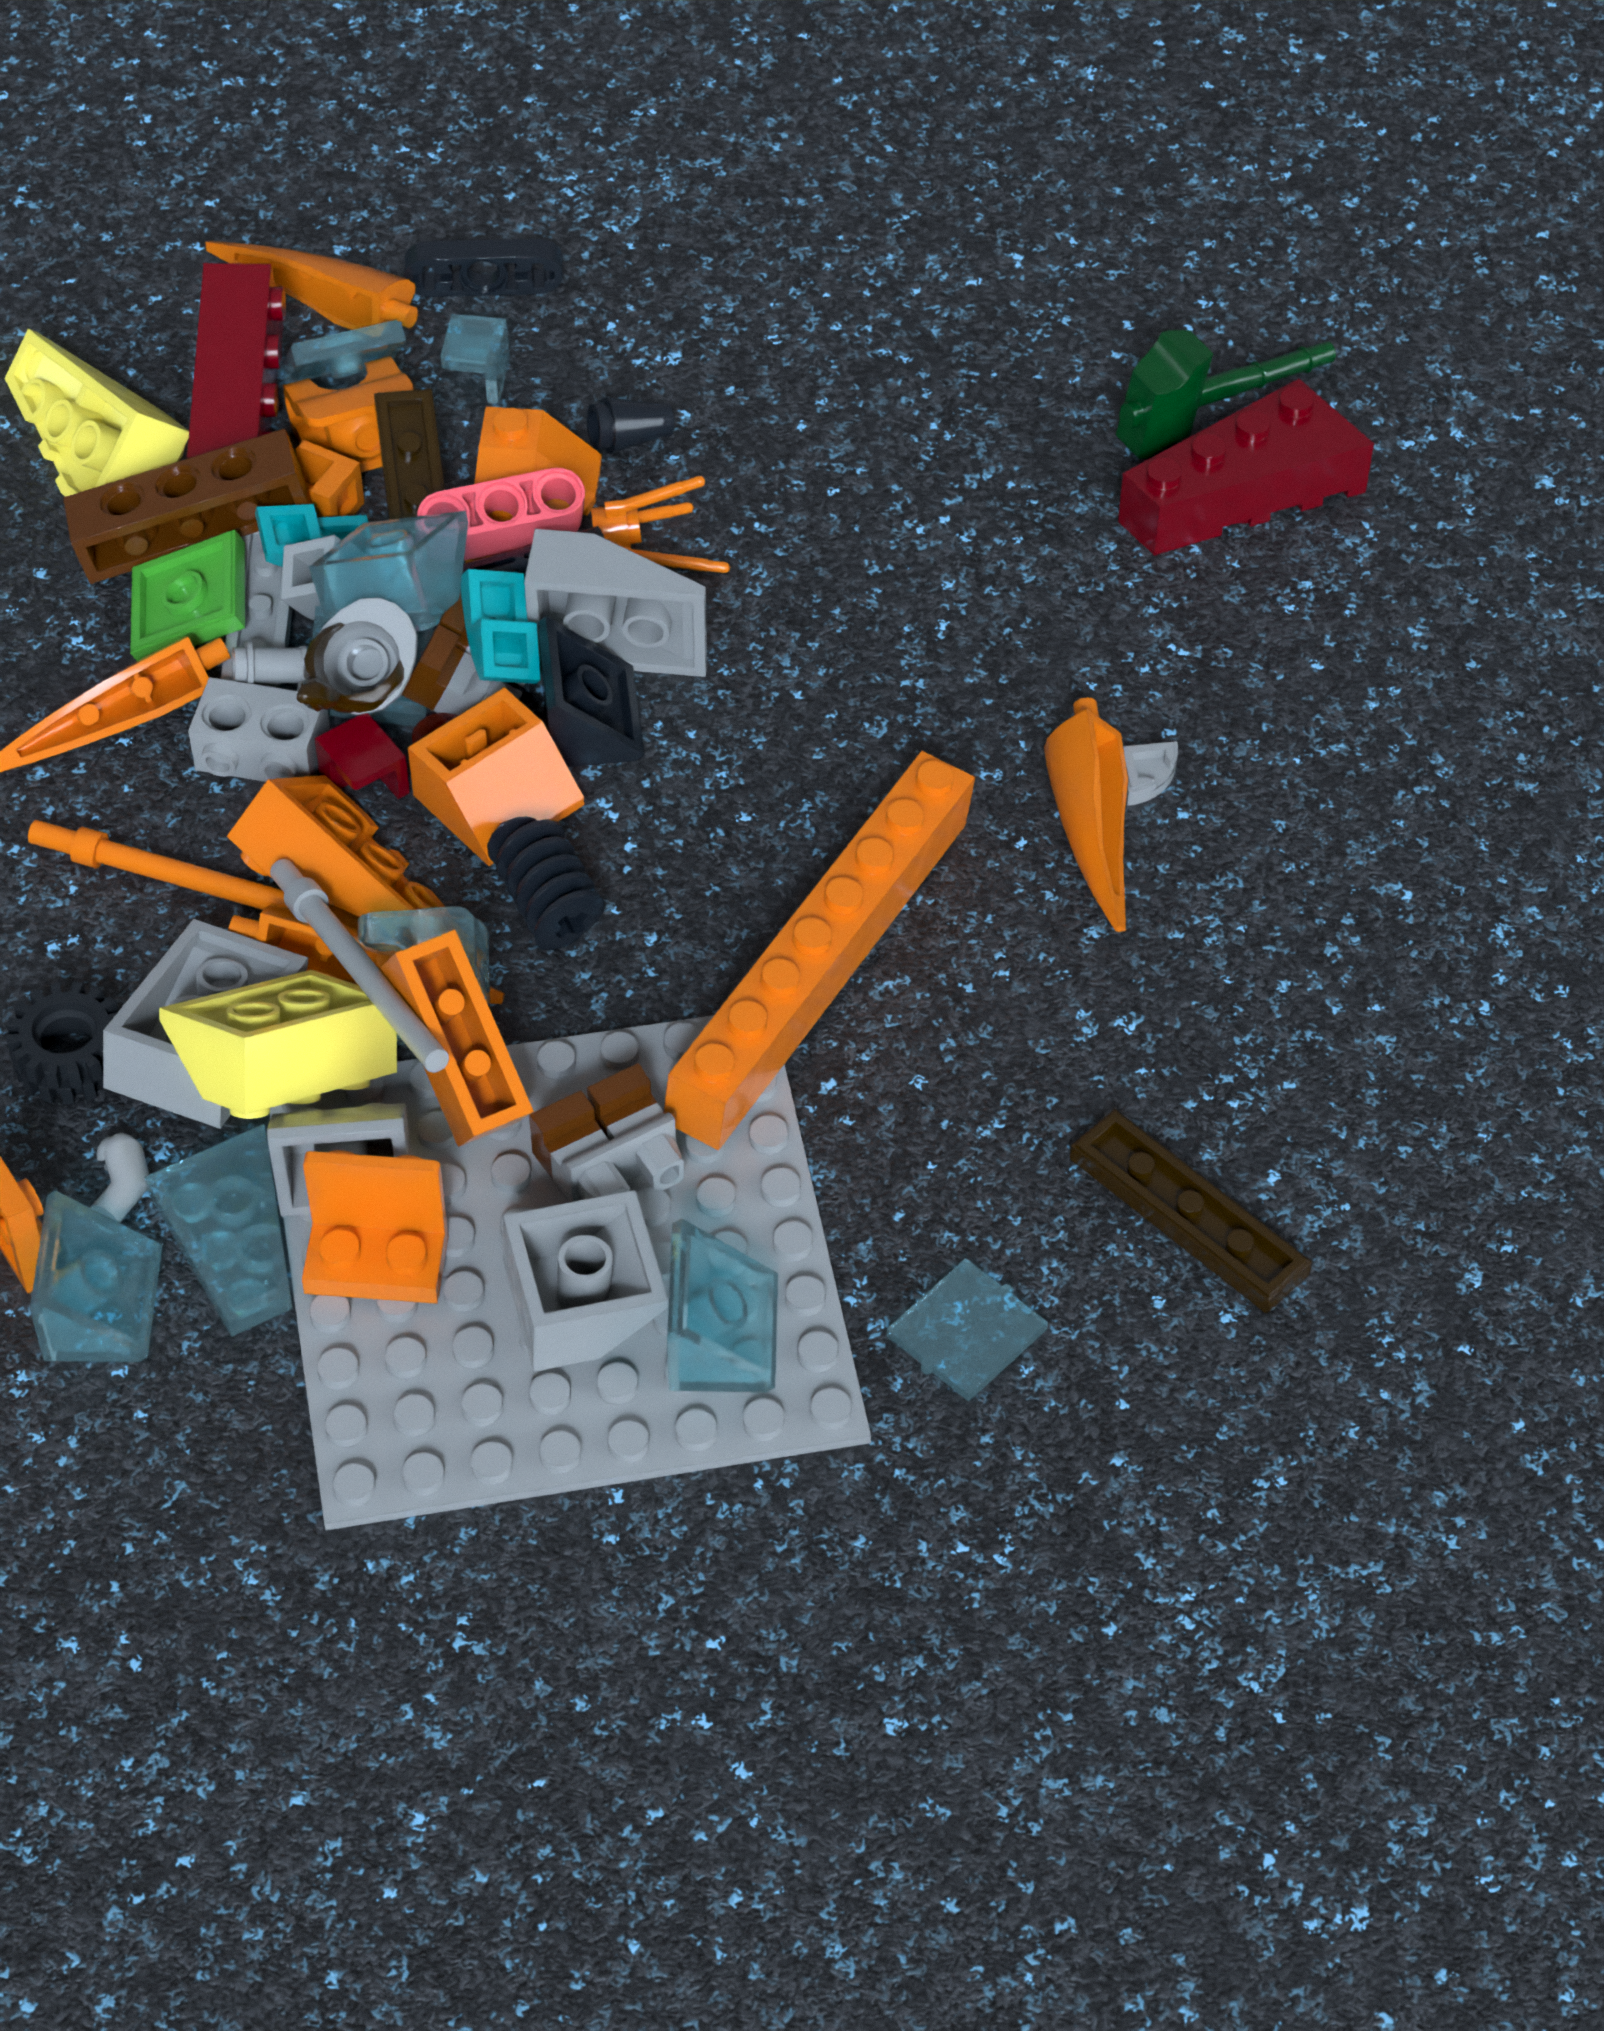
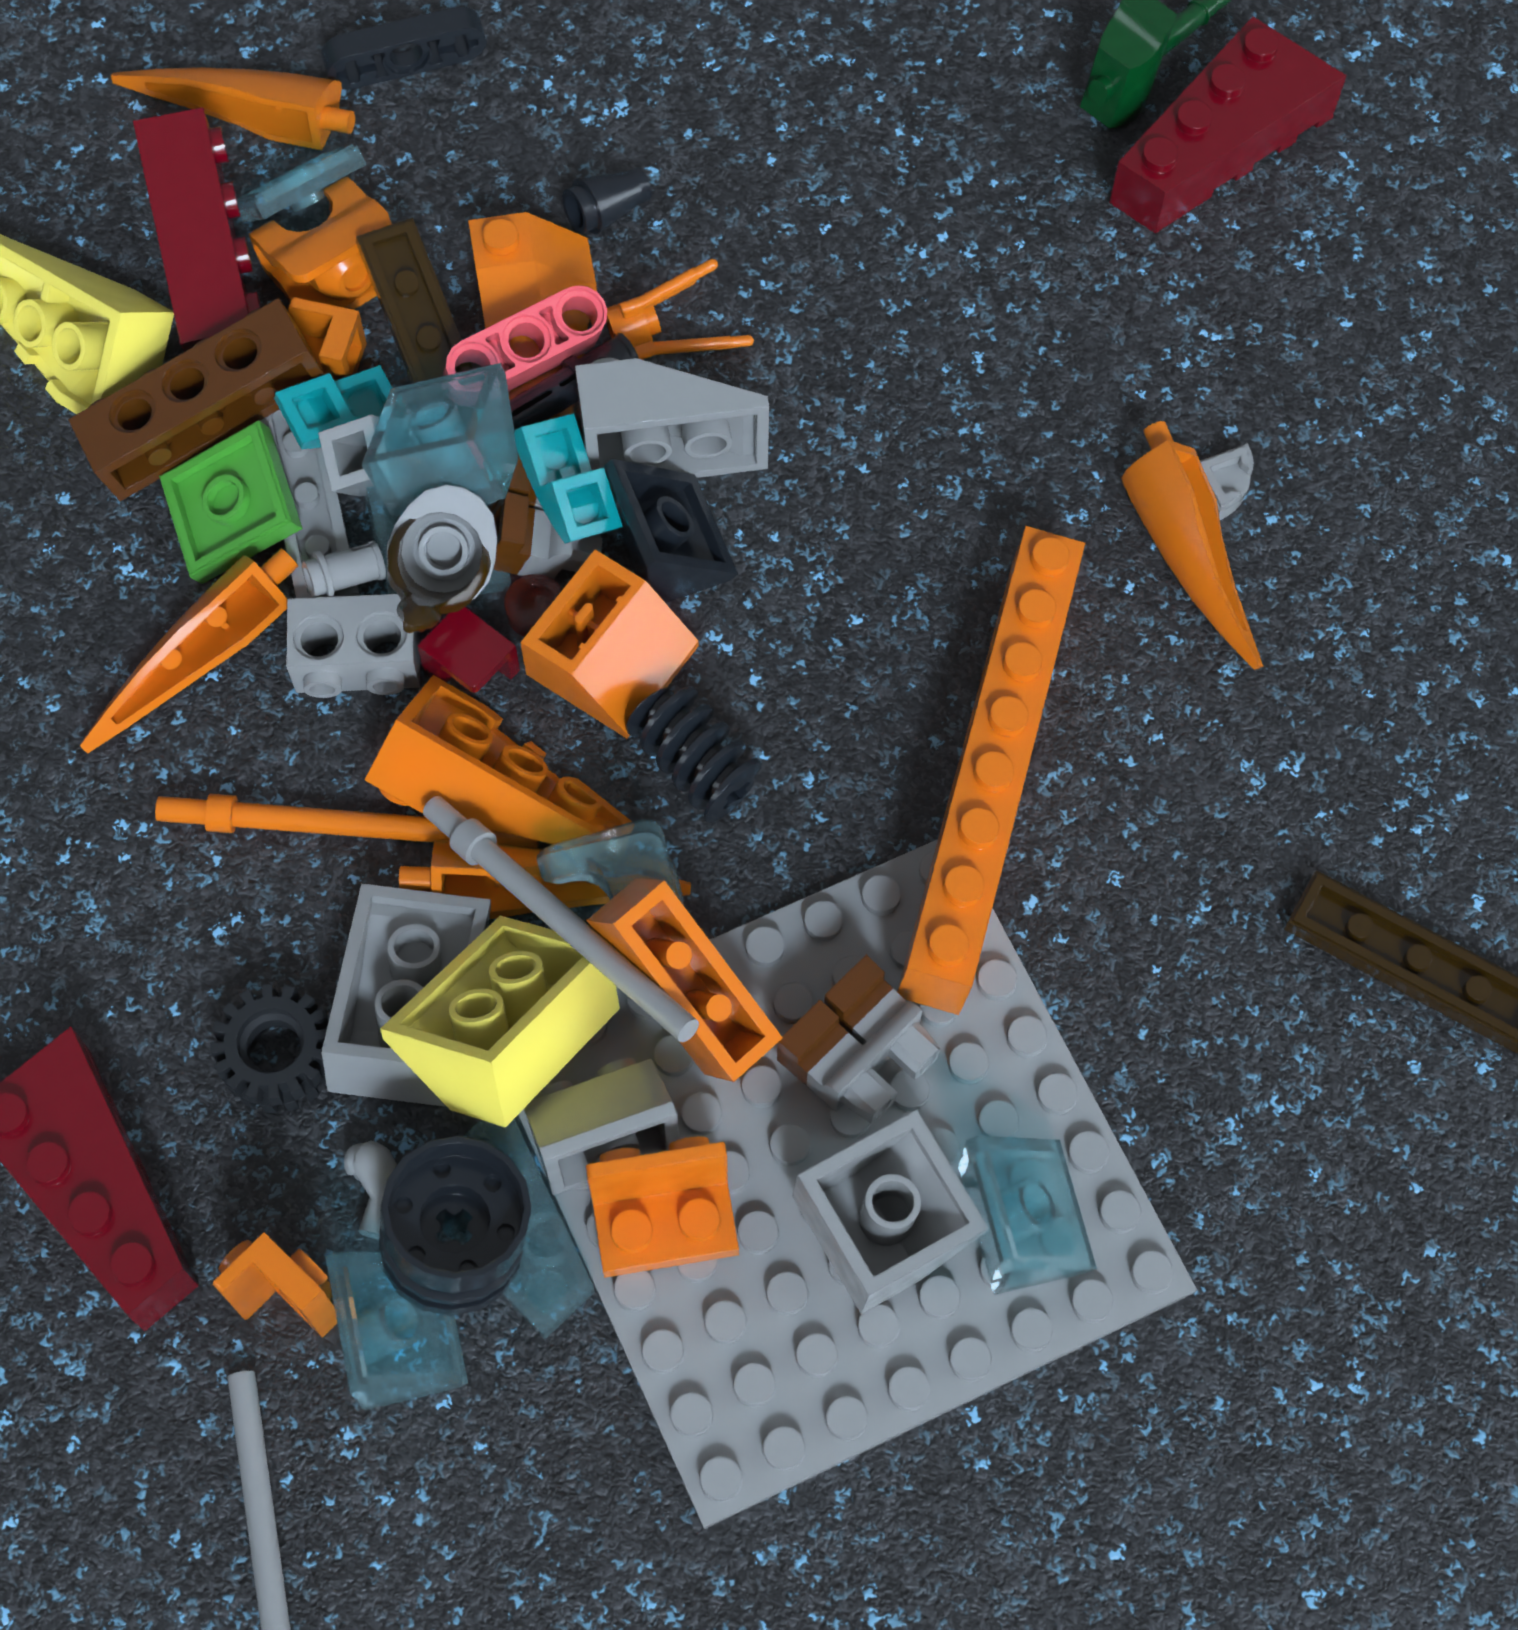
camera: 15 degrees left, 15 degrees up
(171, 1192) = (453, 1189): none -> black wheel
(478, 347) = (430, 148): clear light blue panel -> none
(967, 1329) = (1248, 1145): clear light blue piece -> none

